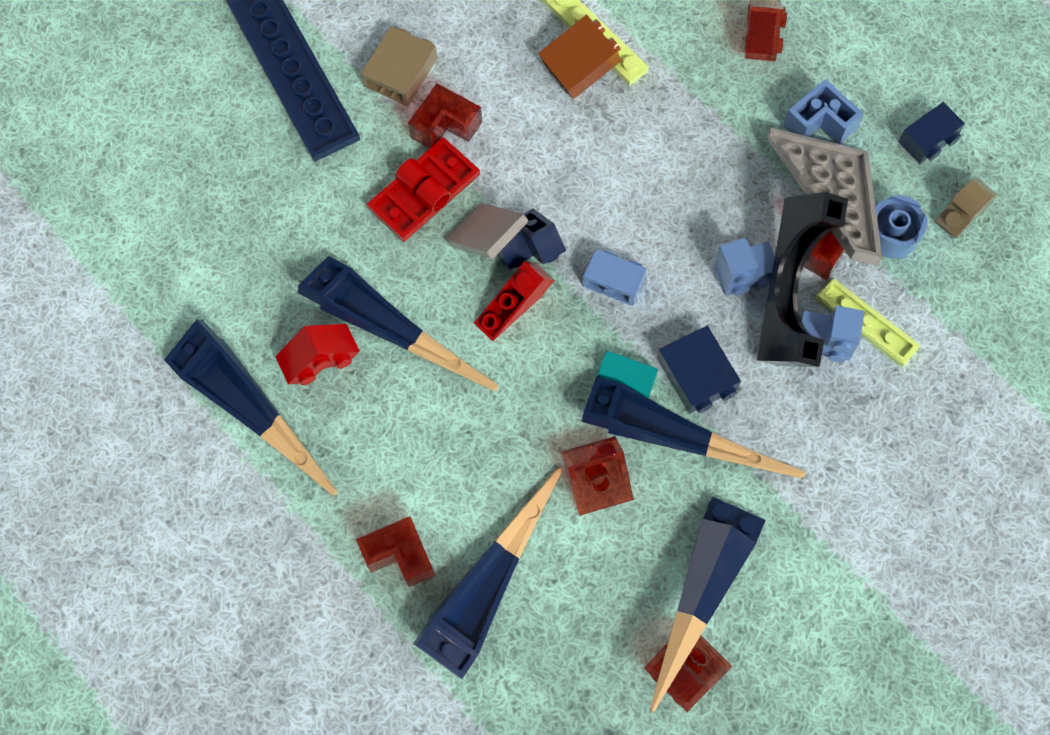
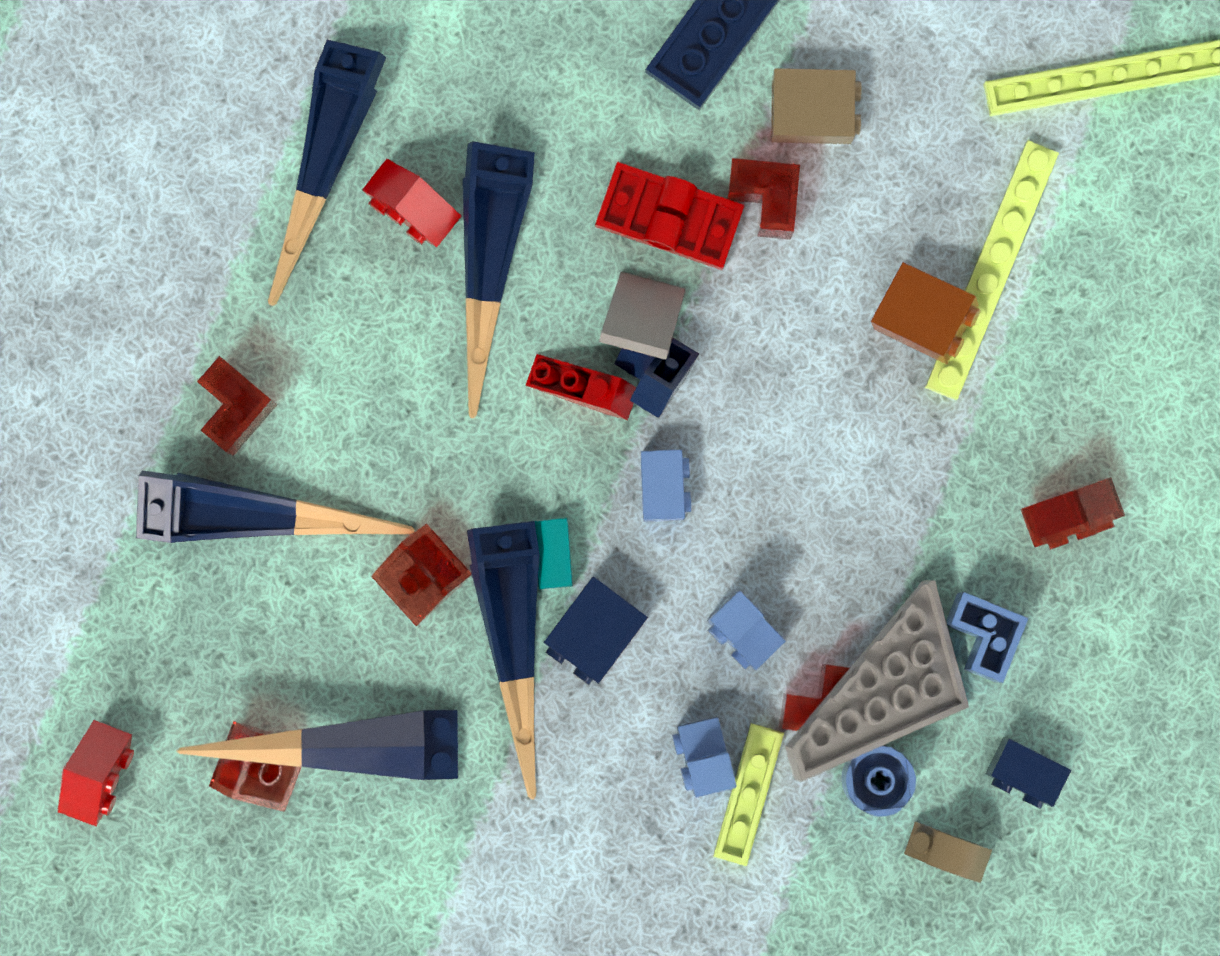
camera: 60 degrees right, 15 degrees up
(802, 226) = (671, 709): black arch -> none

